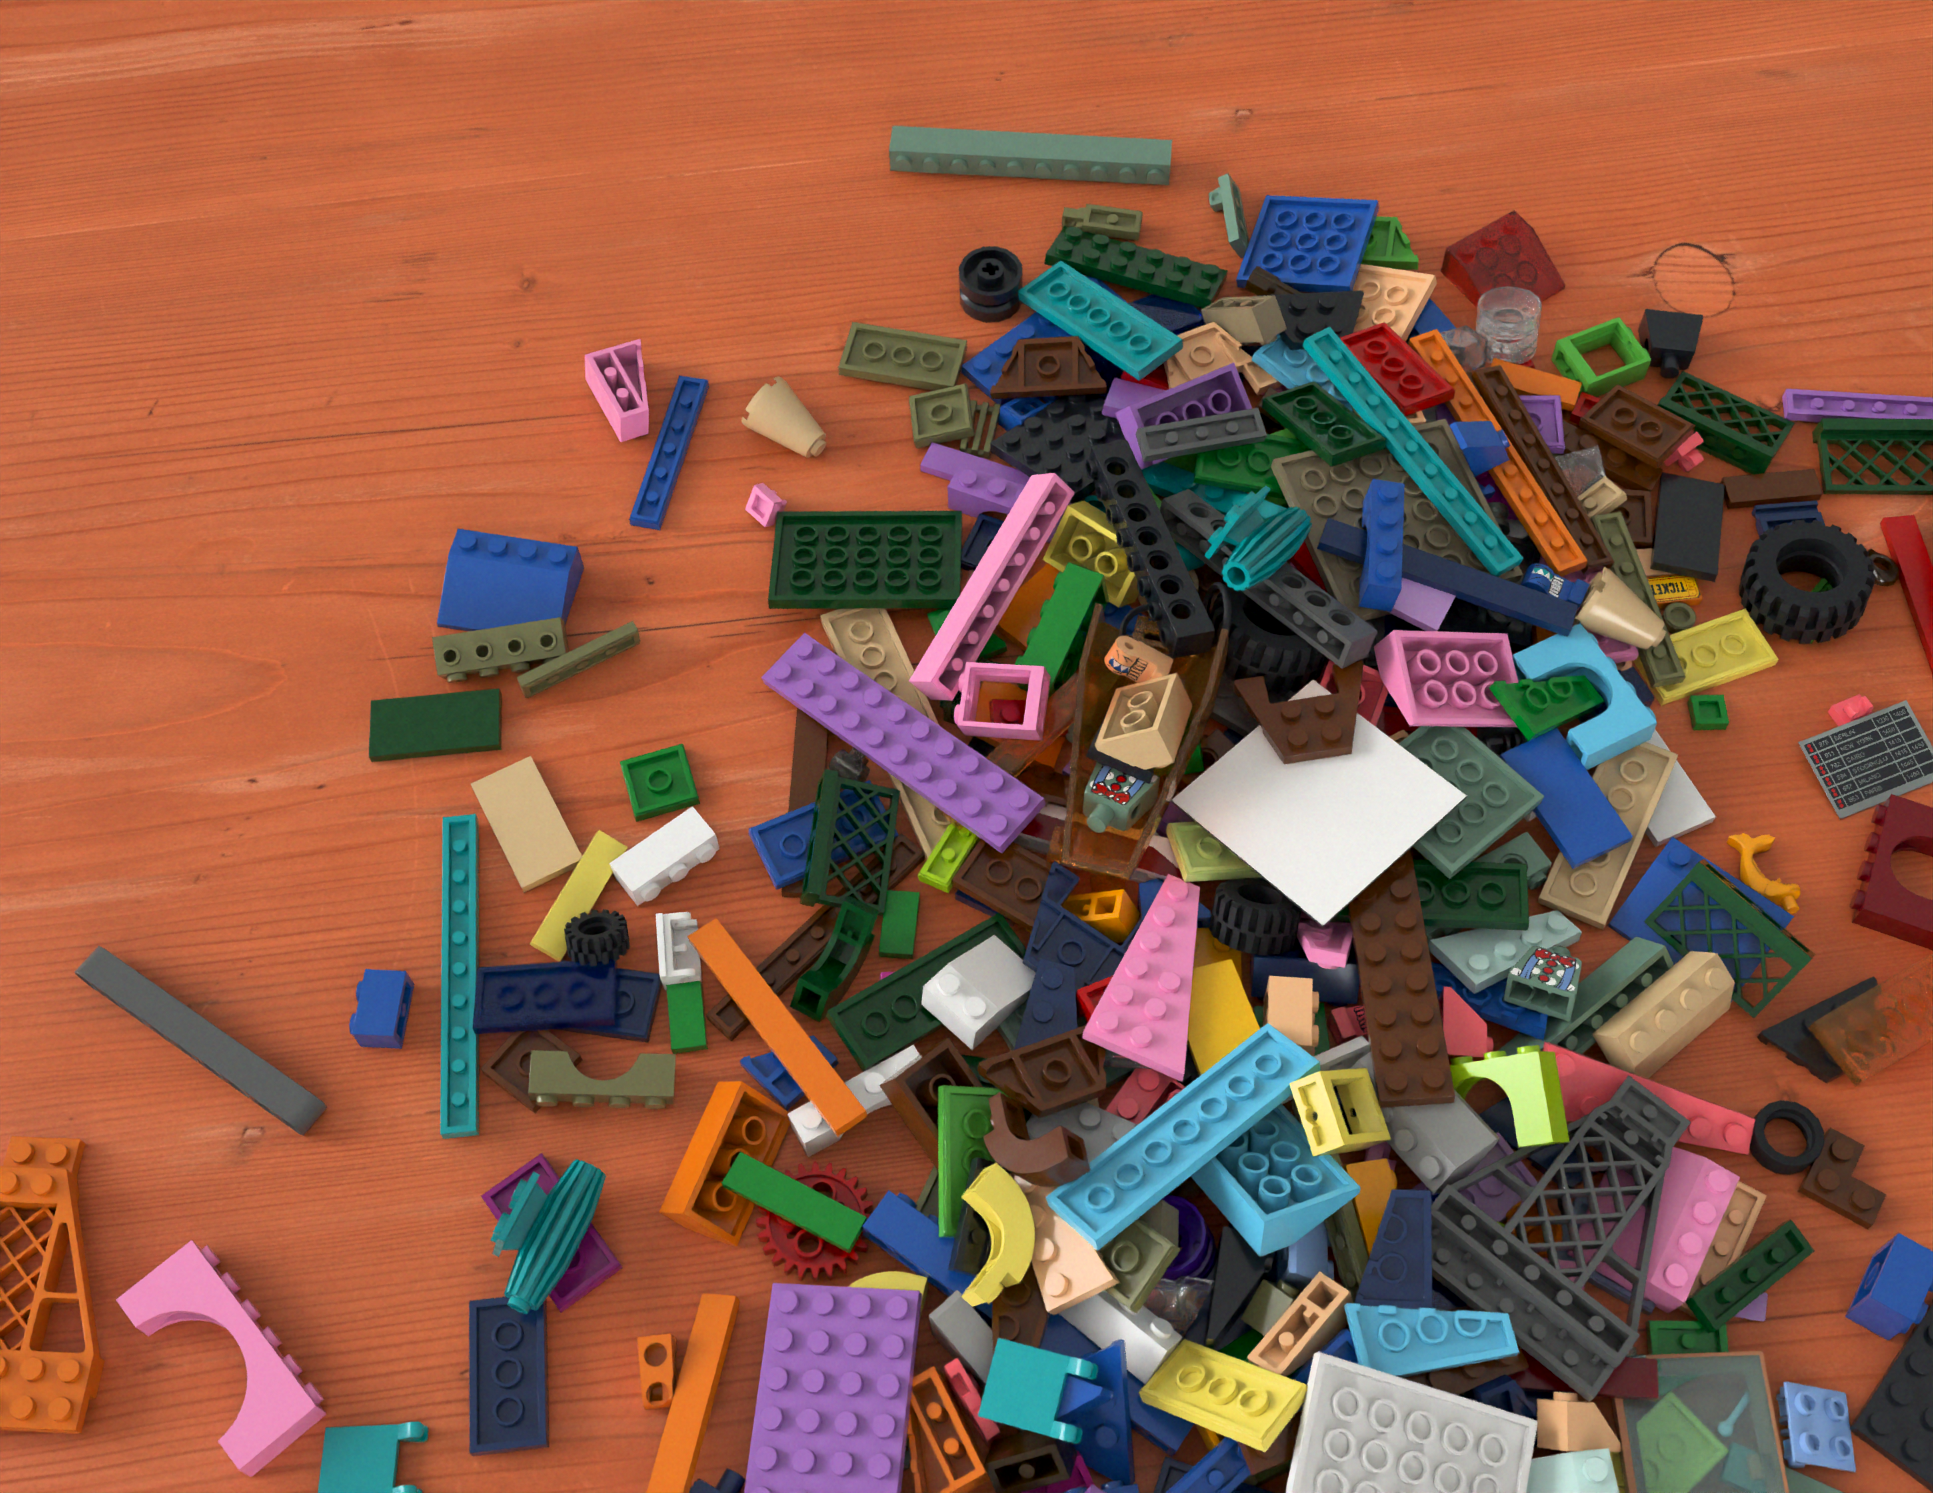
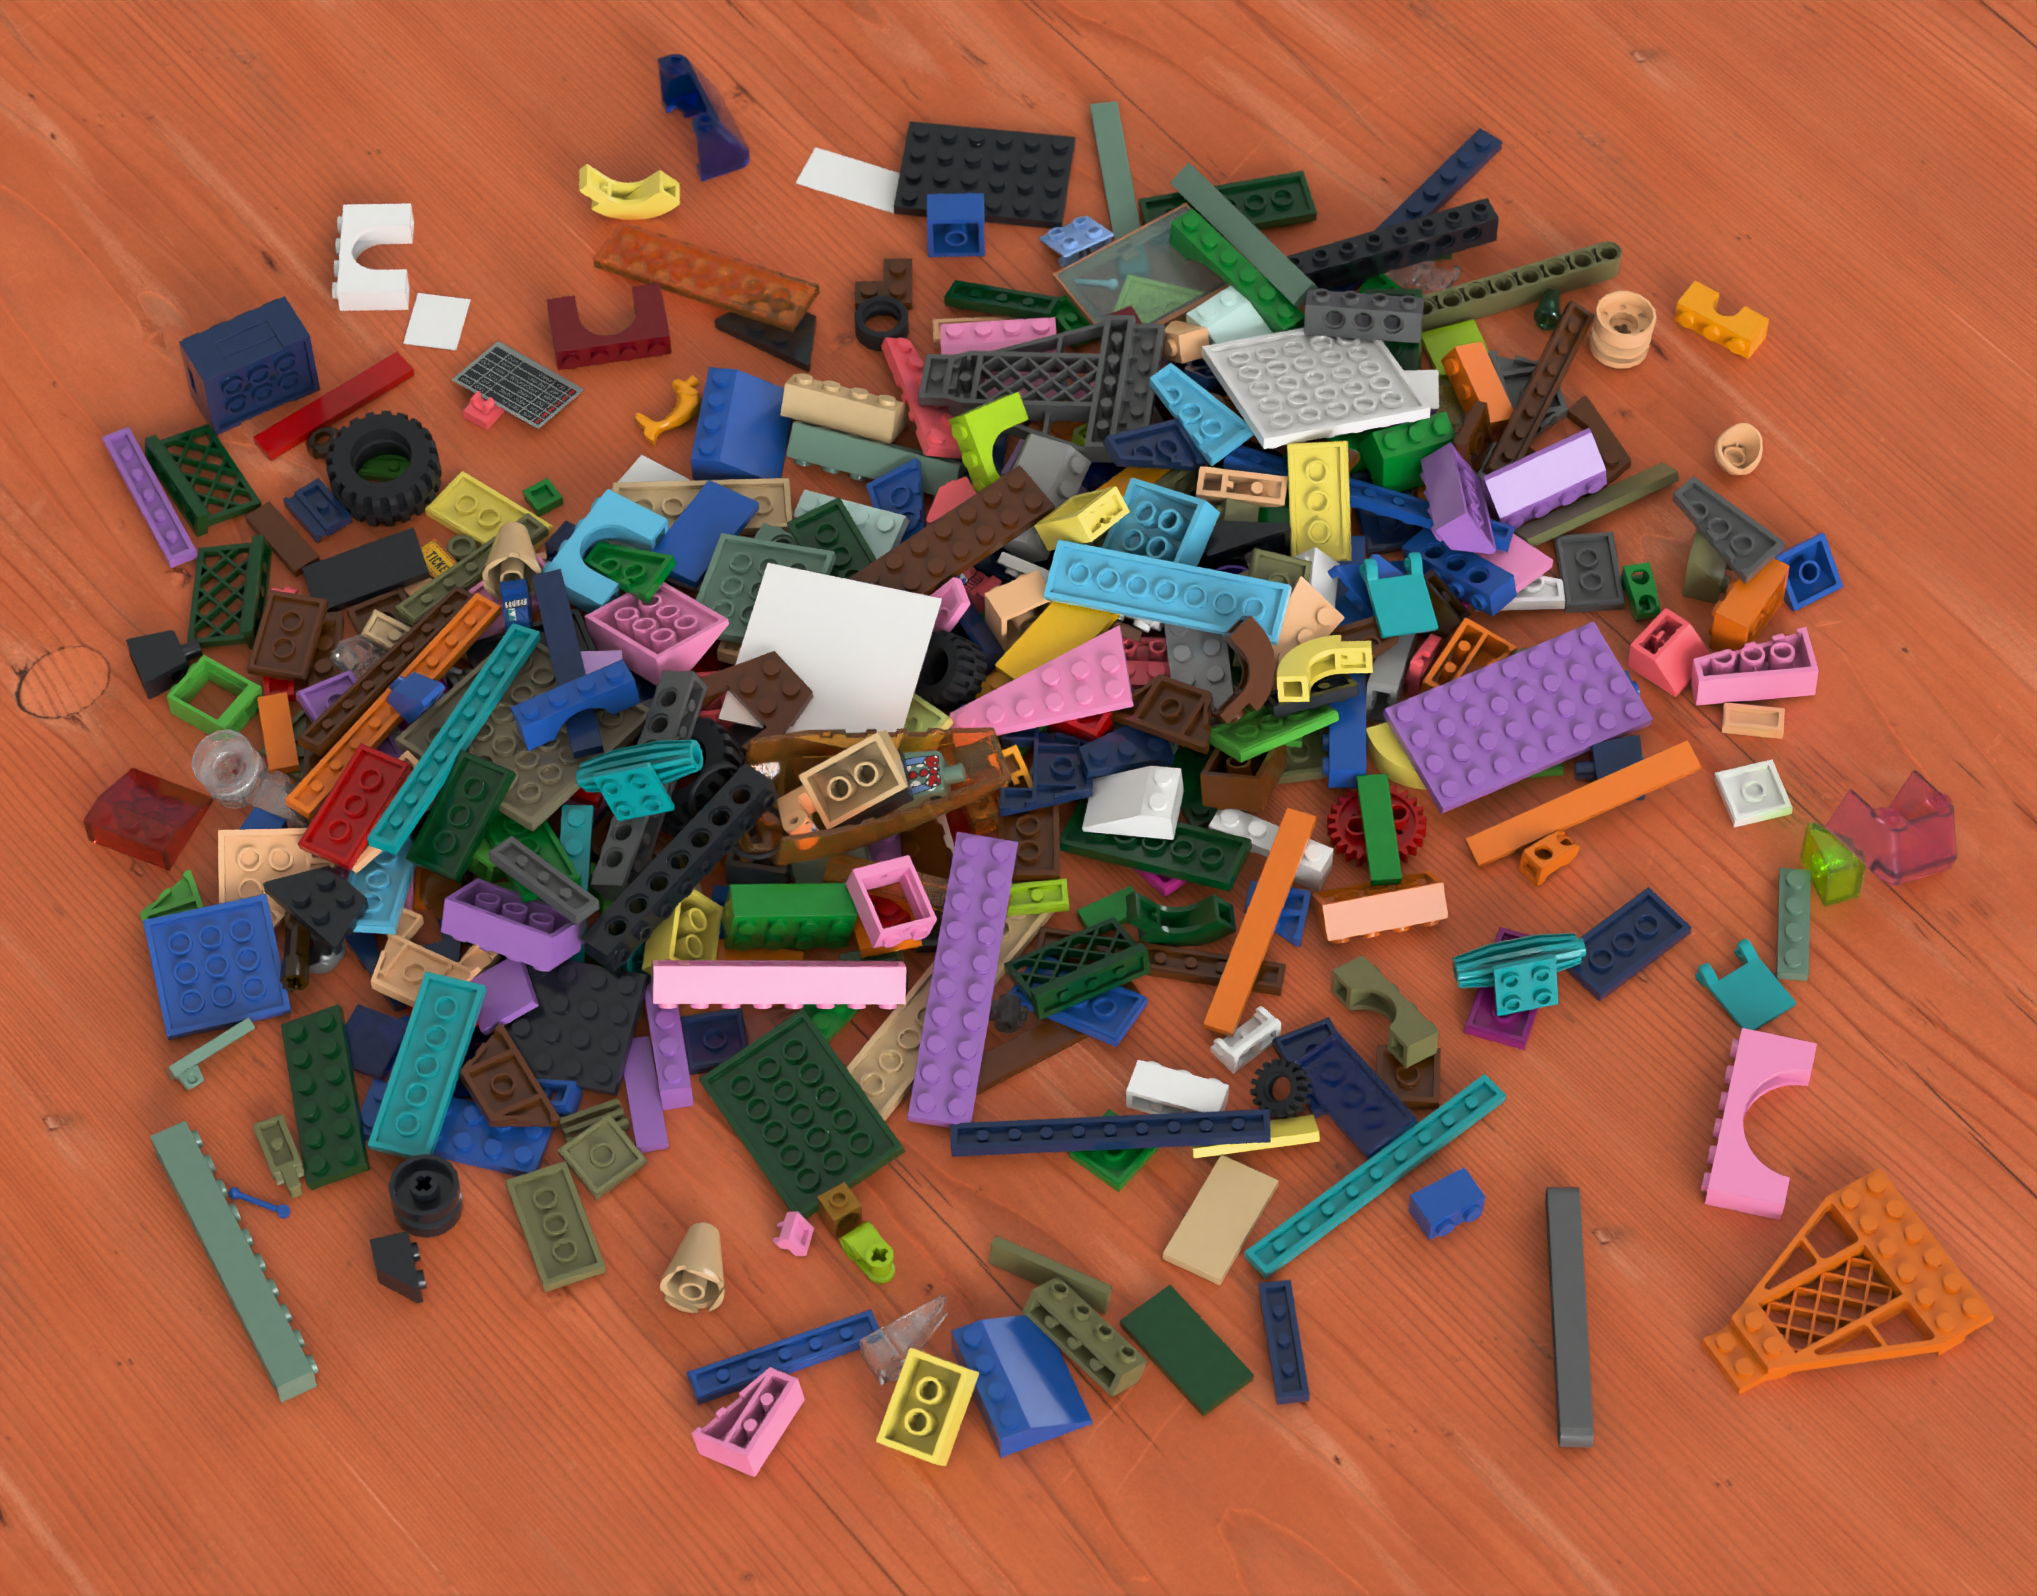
camera: 125 degrees left, 5 degrees down
(376, 797) = (1283, 1342): none -> dark blue plate
(526, 495) = (927, 1407): none -> light yellow brick
(609, 518) = (888, 1347): none -> clear slope
(659, 778) = (1111, 1132): none -> dark blue plate
(686, 1017) = (1295, 1001): green tile -> none
(709, 547) = (869, 1252): none -> lime piece
(757, 542) = (839, 1210): none -> pearl gold brick
(942, 245) = (396, 1267): none -> black slope
(1055, 209) = (283, 1210): none -> blue hinge
(1247, 318) = (357, 953): dark tan brick -> none
(1545, 981) = (871, 476): sand green torso -> none
(1748, 914) = (737, 383): dark green fence -> none

